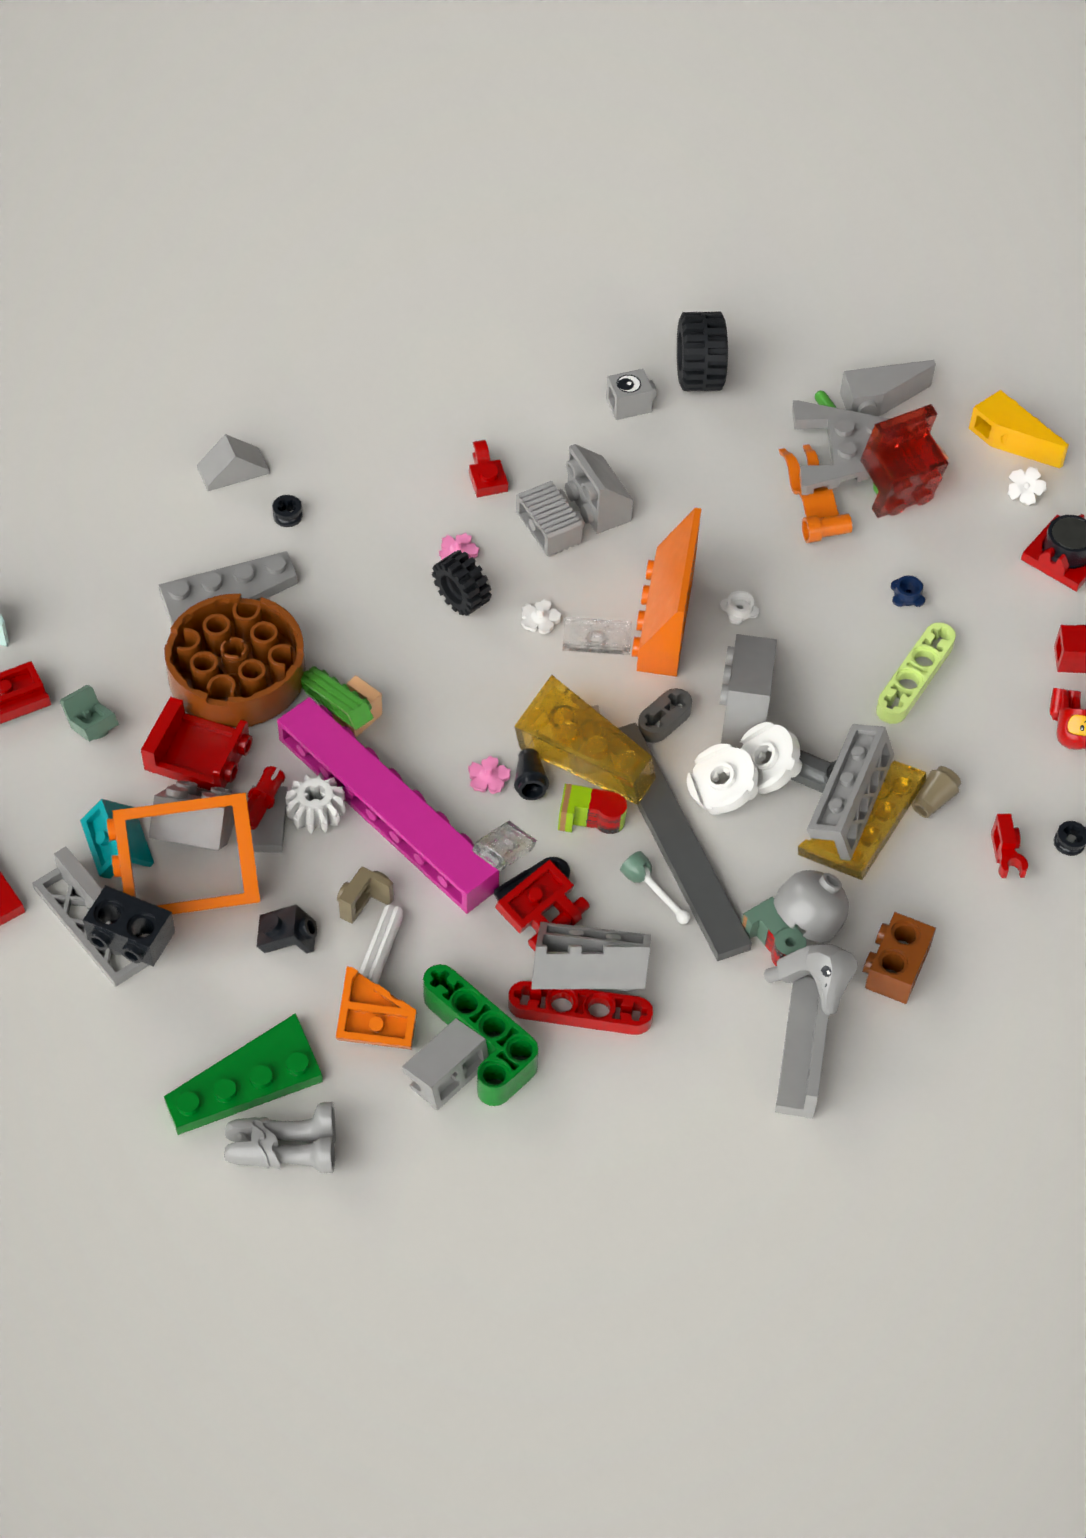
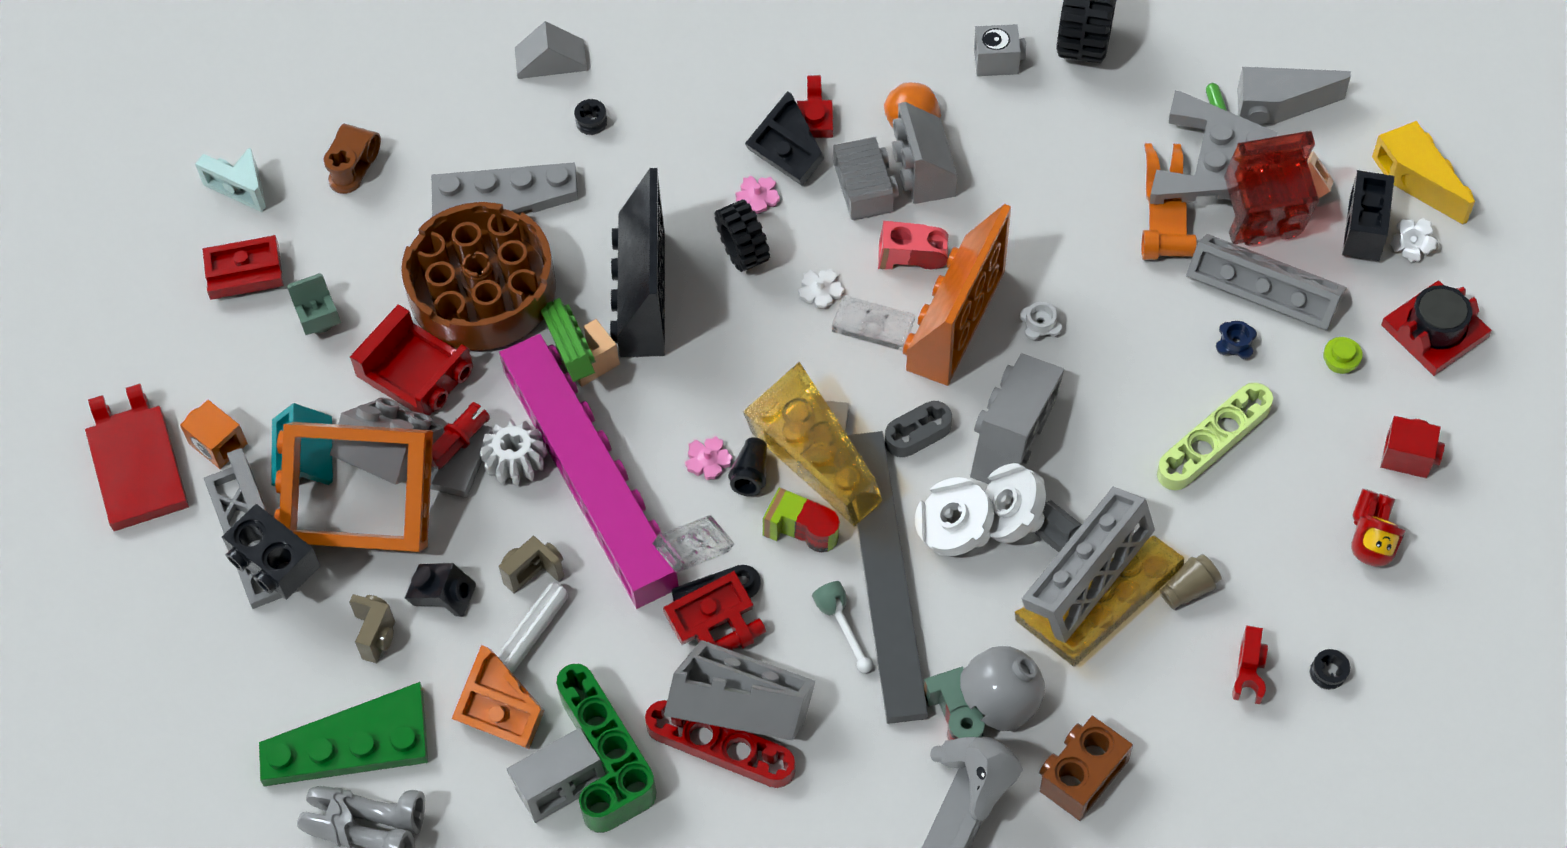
camera: 20 degrees right, 5 degrees up
(30, 842) = (213, 433): none -> orange brick
(78, 583) = (350, 157): none -> dark orange piece
(238, 965) = (377, 628): none -> dark tan bracket
(383, 625) = (640, 272): none -> black slope
(472, 500) = (787, 141): none -> black wing
(558, 449) = (914, 94): none -> orange hair
(609, 566) = (912, 245): none -> coral leg
(917, 541) = (1265, 281): none -> light grey fence
(985, 472) = (1368, 215): none -> black brick
(998, 588) = (1342, 355): none -> lime plate

